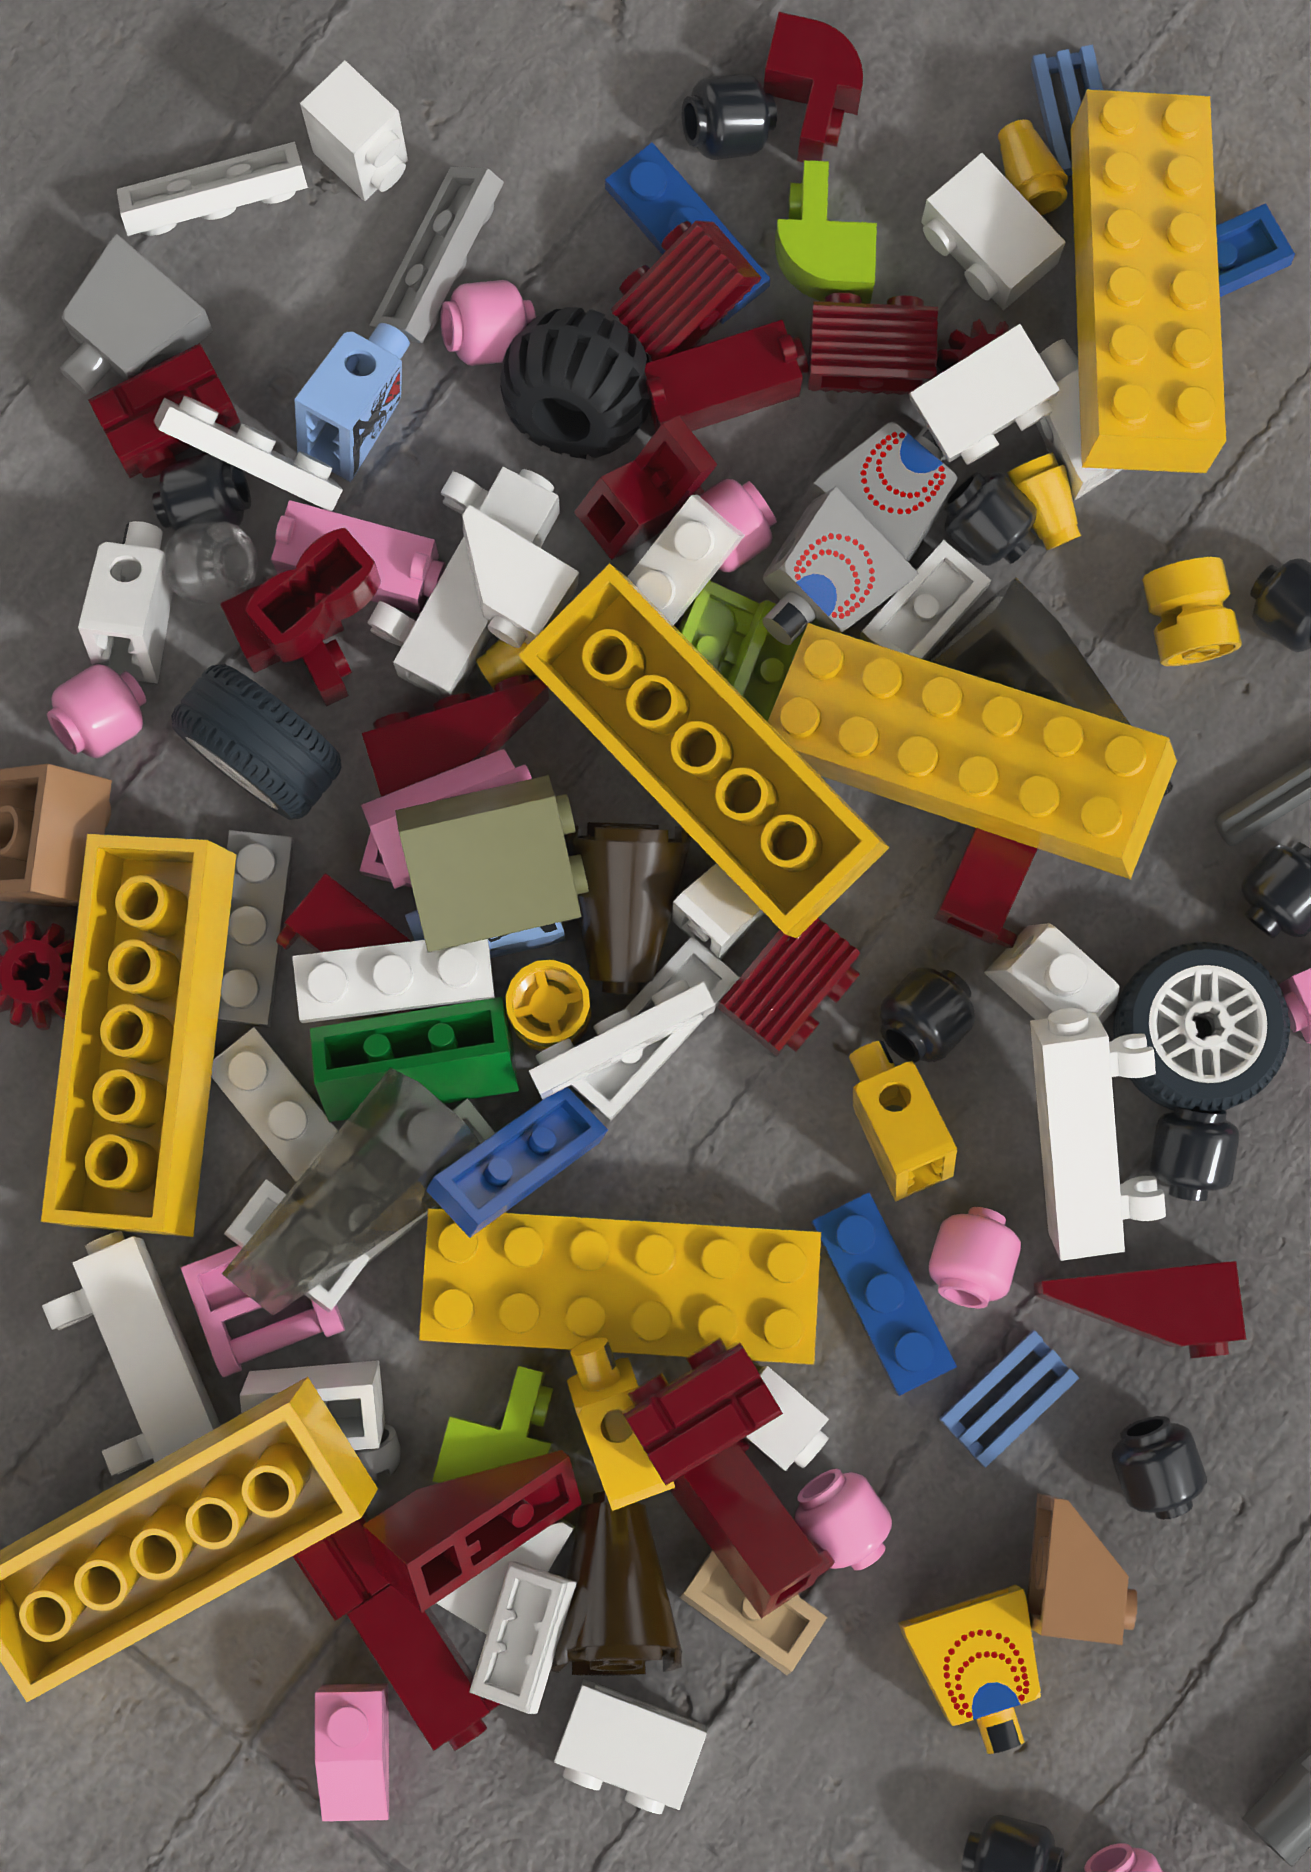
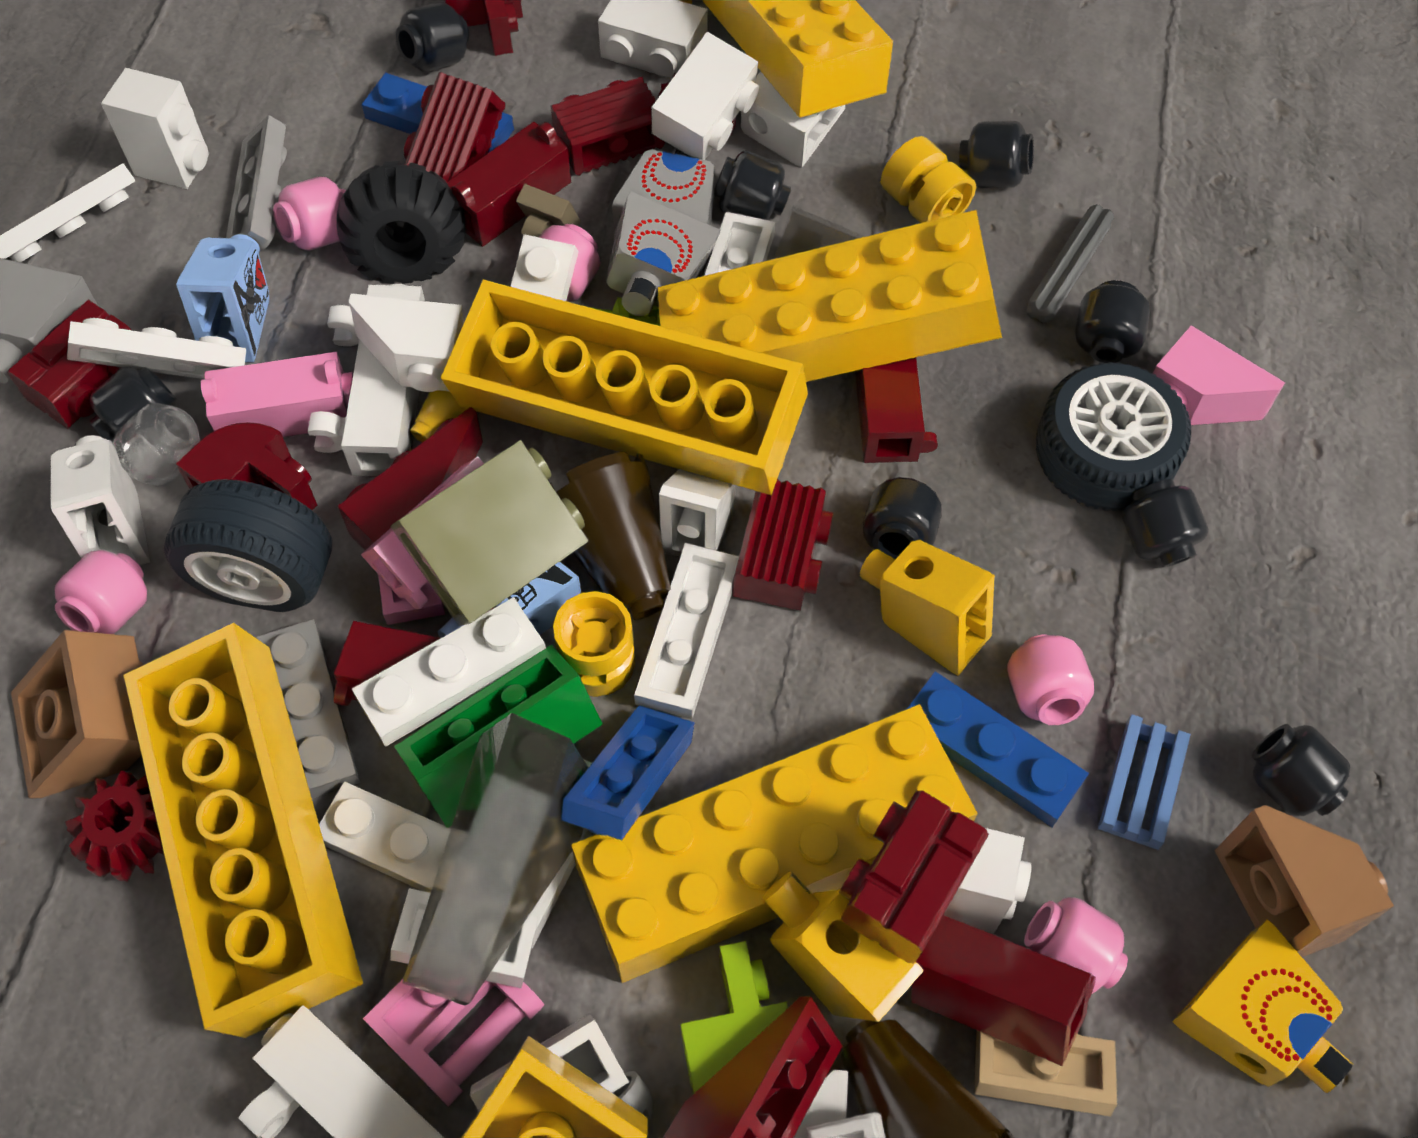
camera: 25 degrees left, 20 degrees down
(326, 586) = (249, 409): dark red brick -> none
(620, 1037) = (668, 634): white plate -> none
(647, 492) = (491, 251): dark red brick -> none
(741, 448) = (544, 211): none -> dark tan tile
(823, 254) = (537, 82): lime brick -> none
(1050, 492) = (798, 172): yellow cone -> none
(1053, 974) = (987, 449): white torso -> none
(1079, 1133) = (1078, 533): white brick -> none
(1167, 1305) = (1213, 647): dark red slope -> none

